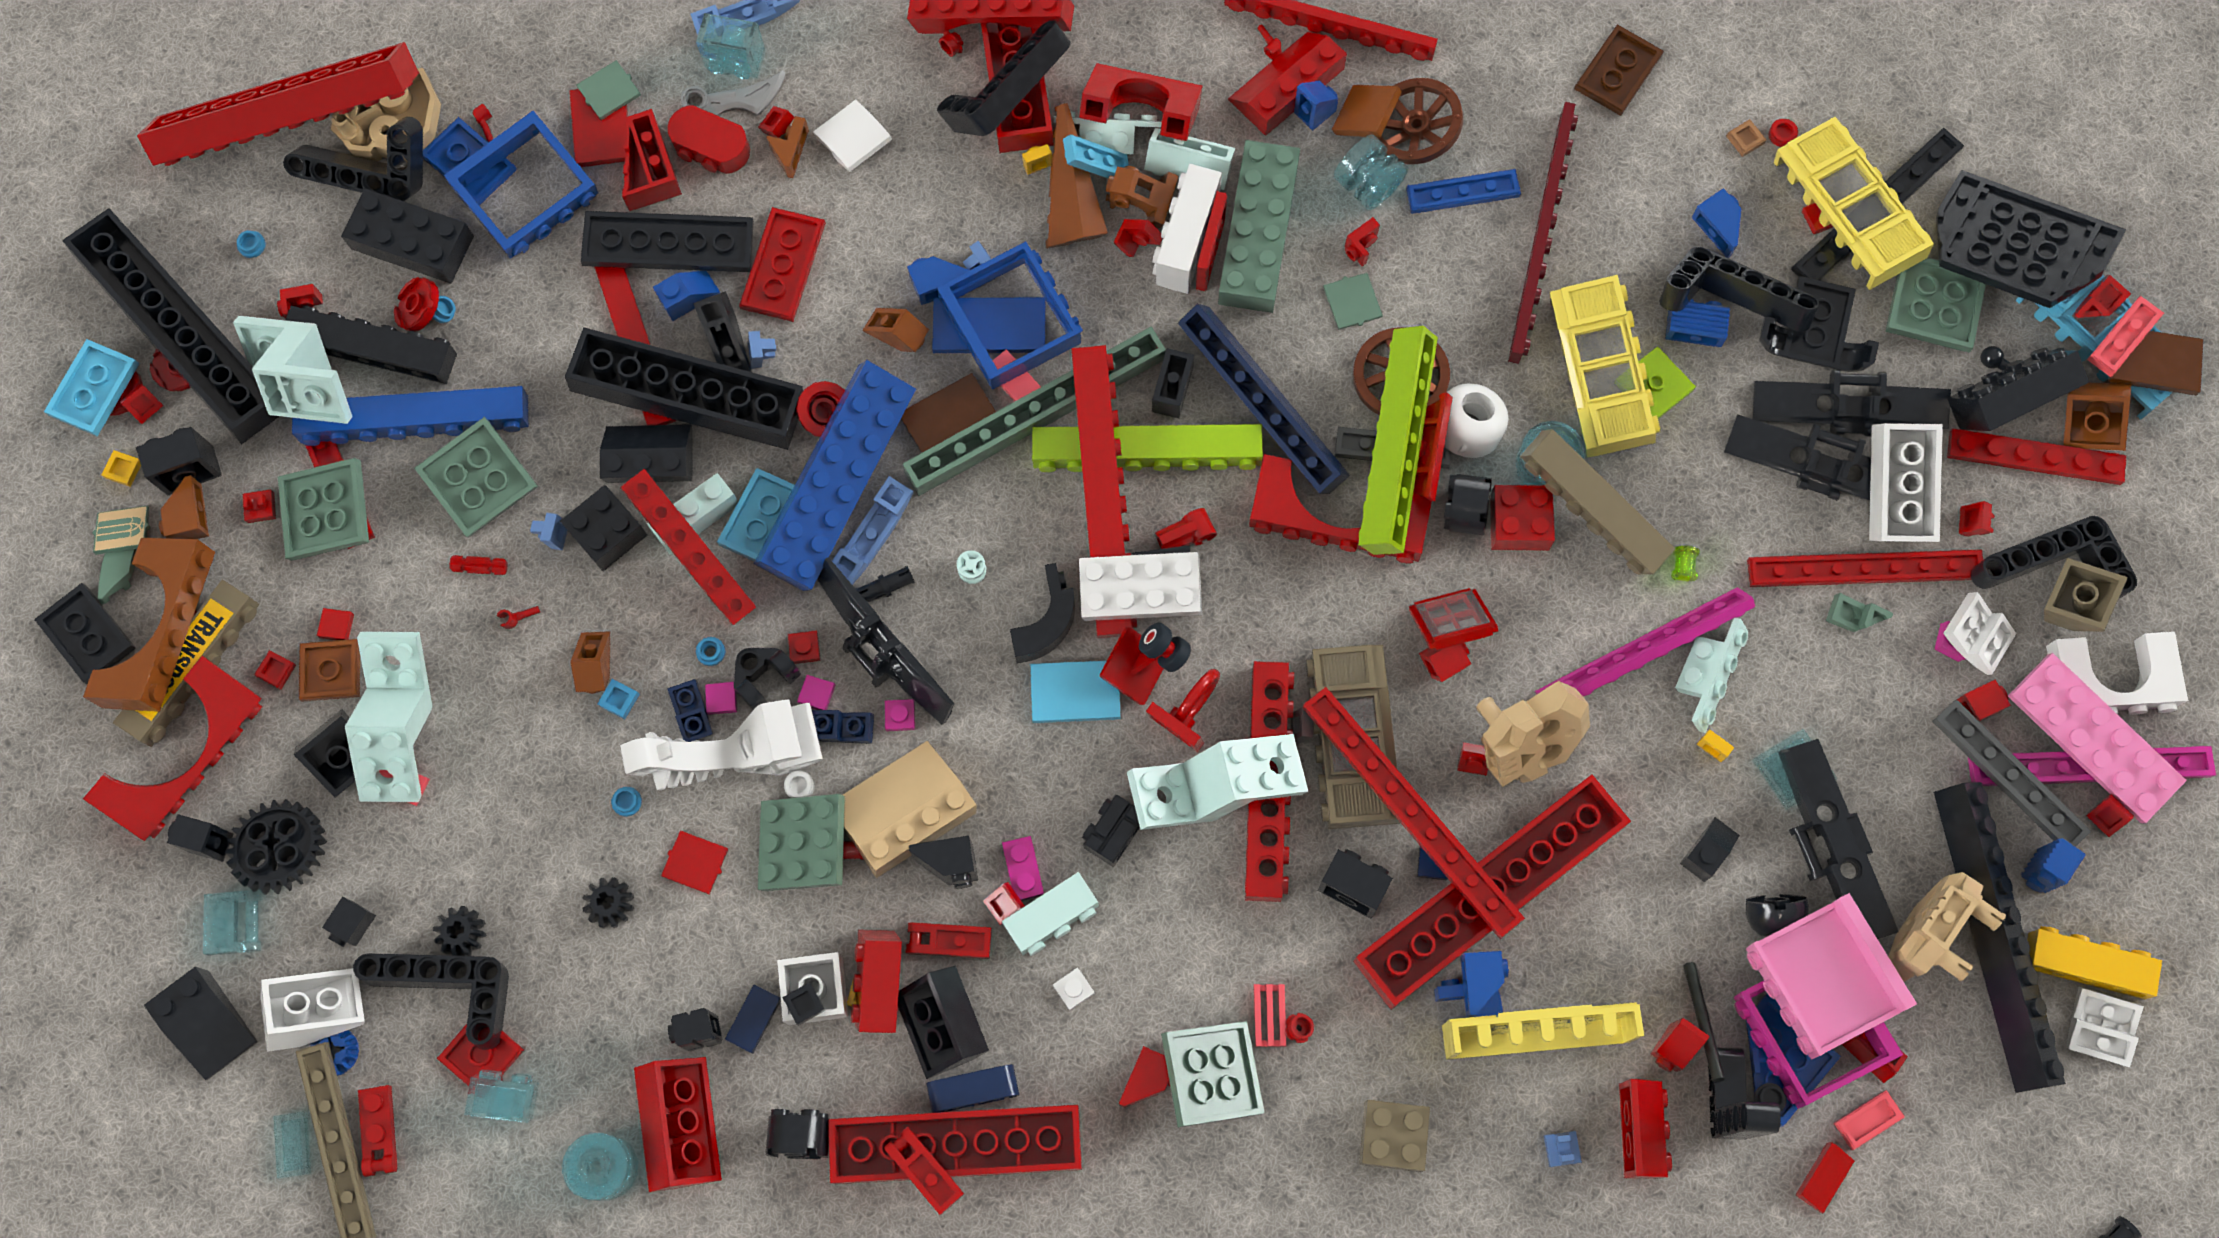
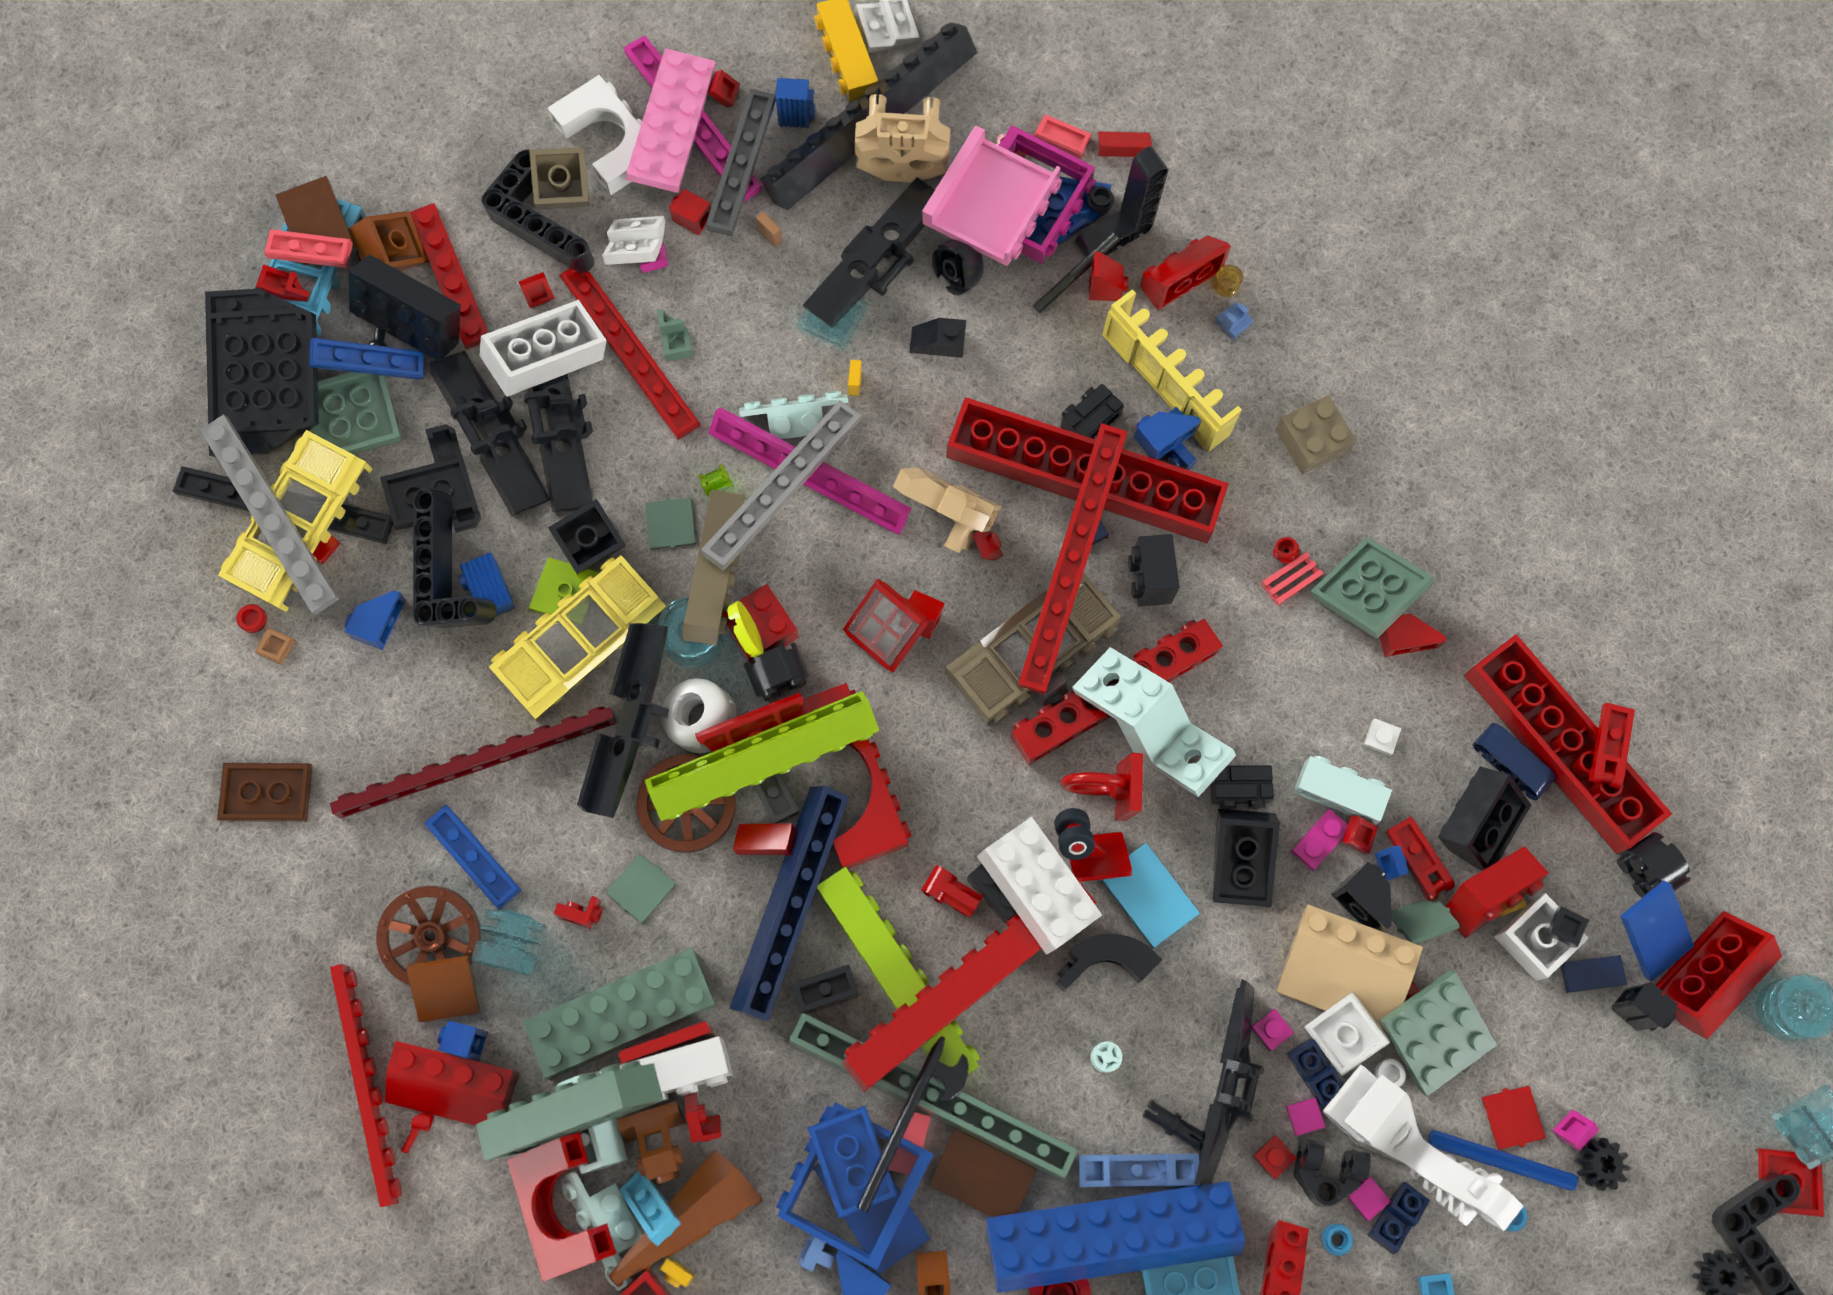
camera: 130 degrees left, 0 degrees up
(648, 900) = (1575, 1130): none -> dark pink plate
(670, 826) = (1503, 1160): none -> blue axle
(746, 1091) = (1657, 930): none -> blue tile
(853, 769) = (1347, 1033): none -> white plate
(896, 900) = (1423, 920): none -> sand green piece
(960, 912) = (1392, 862): none -> blue plate
(1027, 316) = (847, 1157): none -> blue tile
(1034, 428) = (953, 1080): none -> black piece
(1053, 790) = (1245, 857): none -> black slope
(1205, 132) = (569, 1109): none -> sand green brick
(1328, 411) = (764, 839): none -> red tile
(1480, 335) = (614, 756): none -> black piece
(1518, 485) = (745, 629): none -> neon yellow tile
(1546, 938) = (1095, 408): none -> black brick
(1601, 1171) = (1225, 287): none -> clear yellow wheel
(1641, 604) = (780, 485): none -> light grey plate
(1668, 506) = (670, 523): none -> sand green piece
(1692, 421) = (586, 536): none -> black slope
(1869, 178) = (269, 514): none -> light grey plate
(1922, 763) = (769, 229): none -> medium nougat tile
(1982, 332) = (366, 359): none -> blue tile

